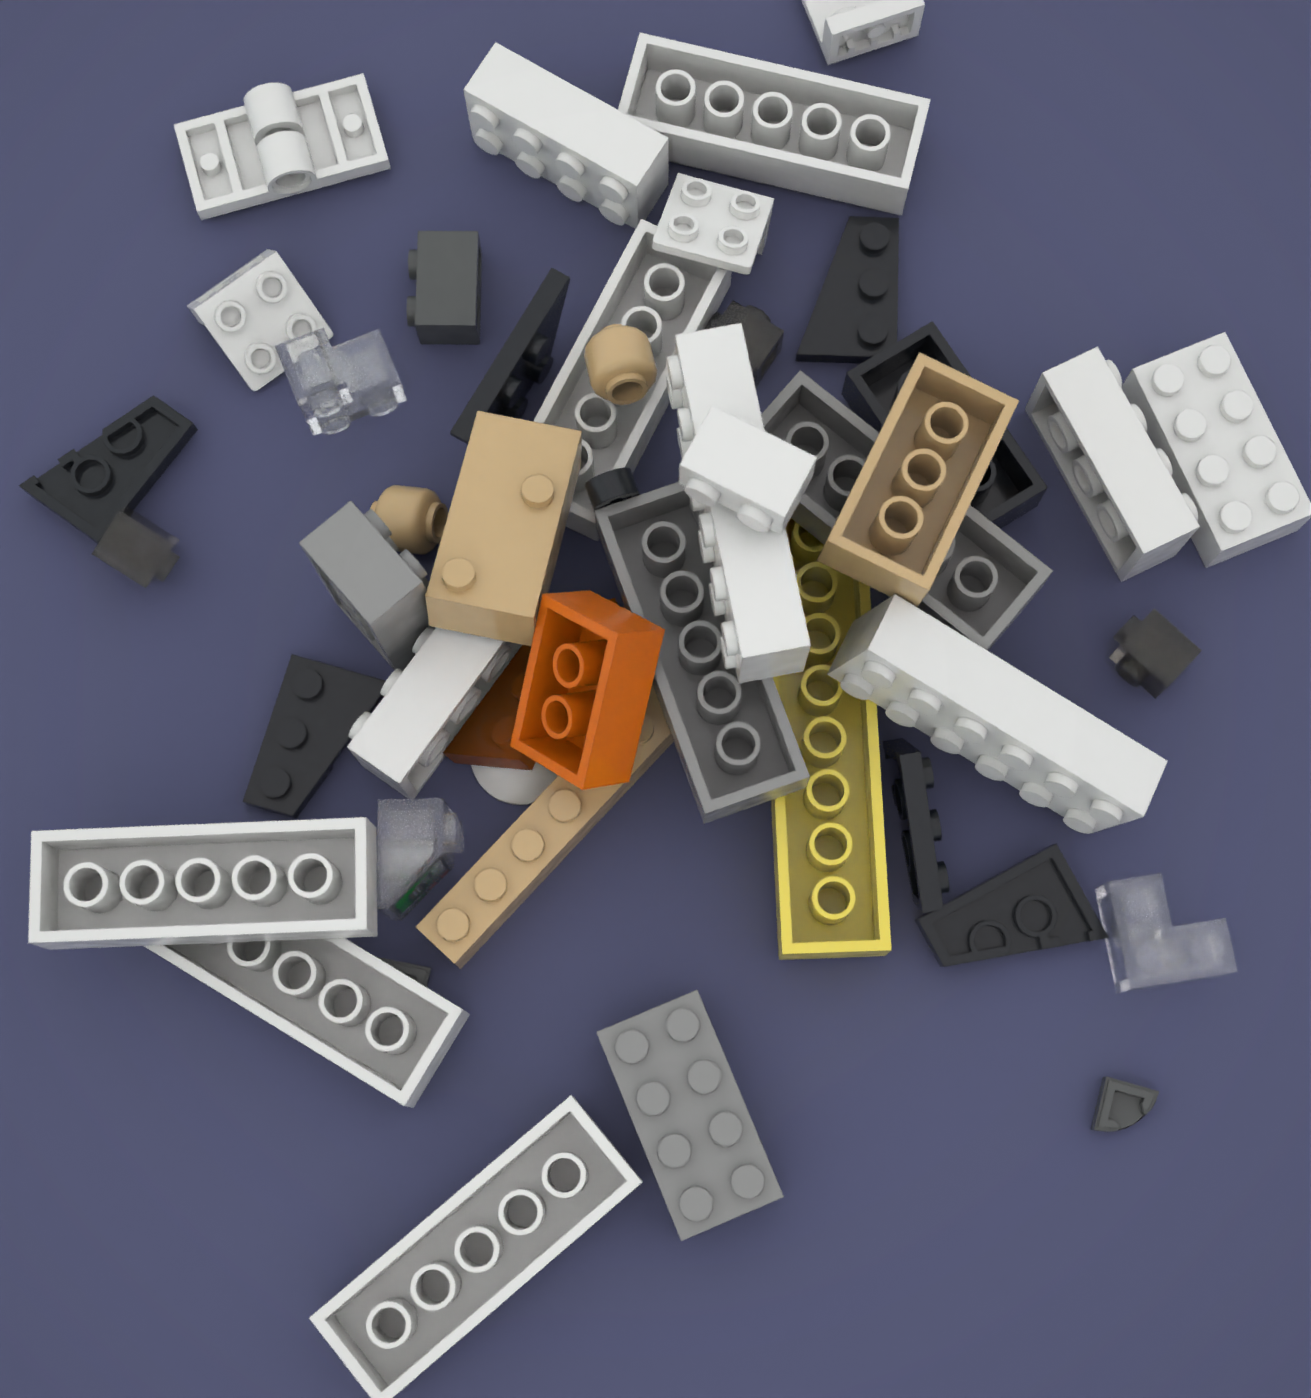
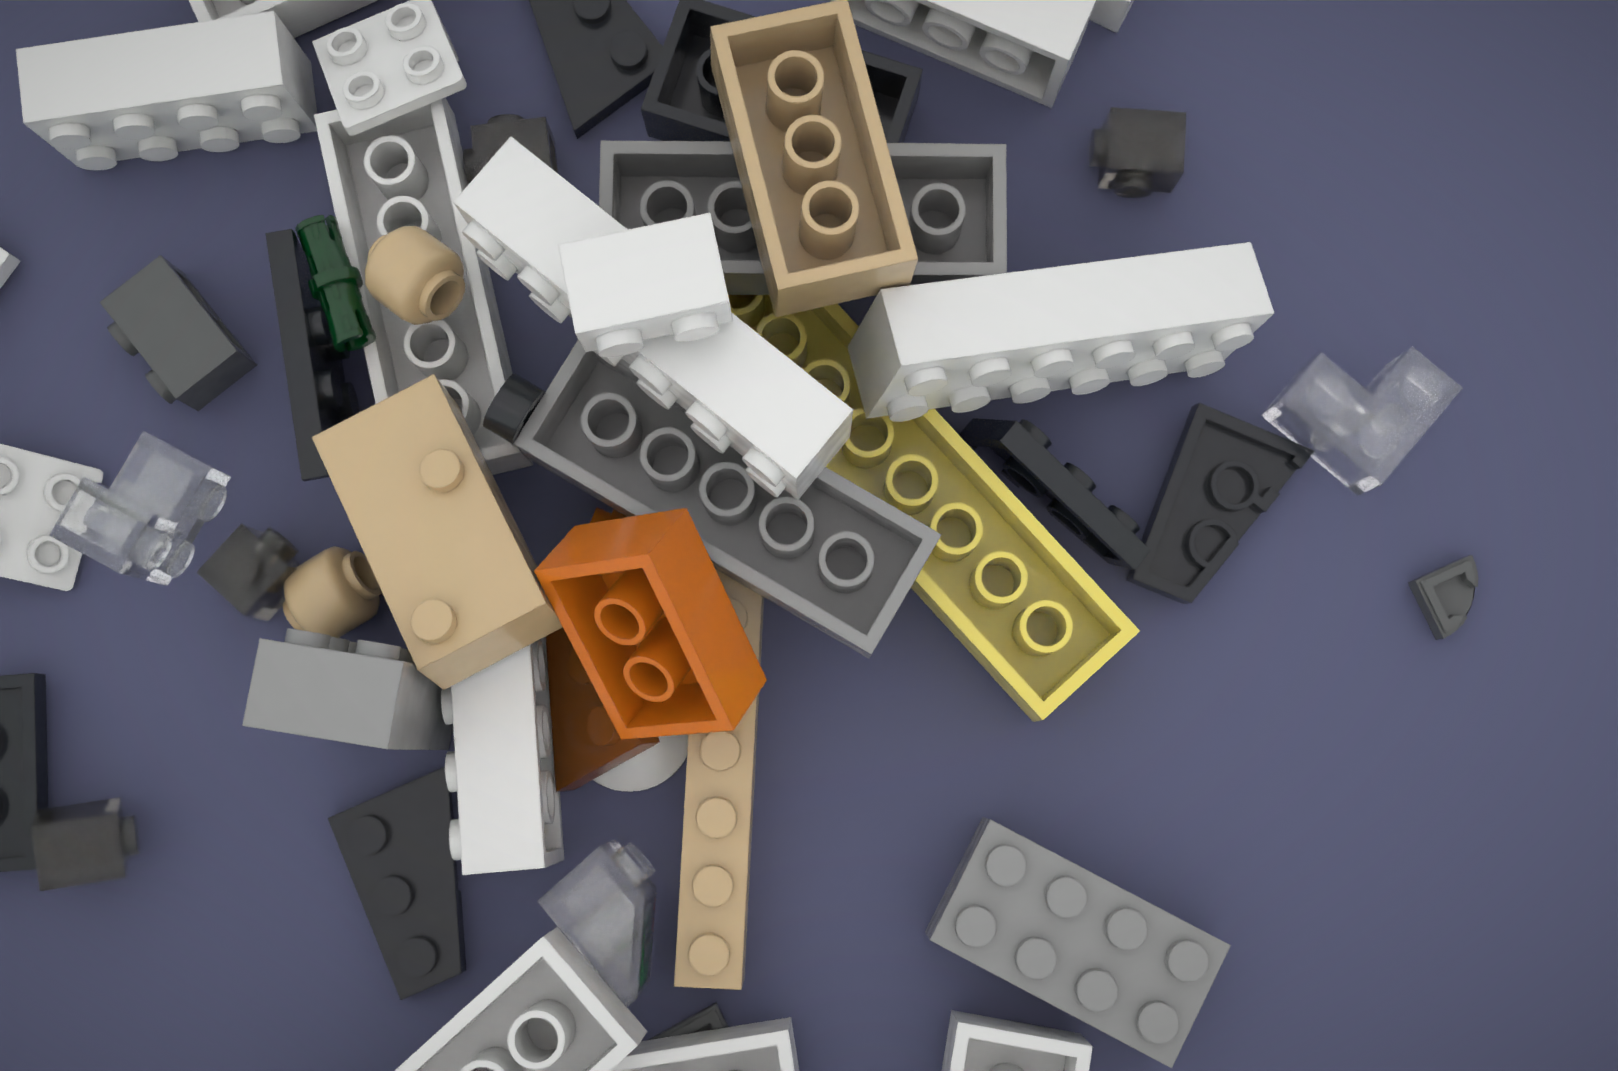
camera: 40 degrees left, 5 degrees up
(373, 465) = (252, 570): none -> clear smoke brick
(568, 331) = (335, 283): none -> dark green pin

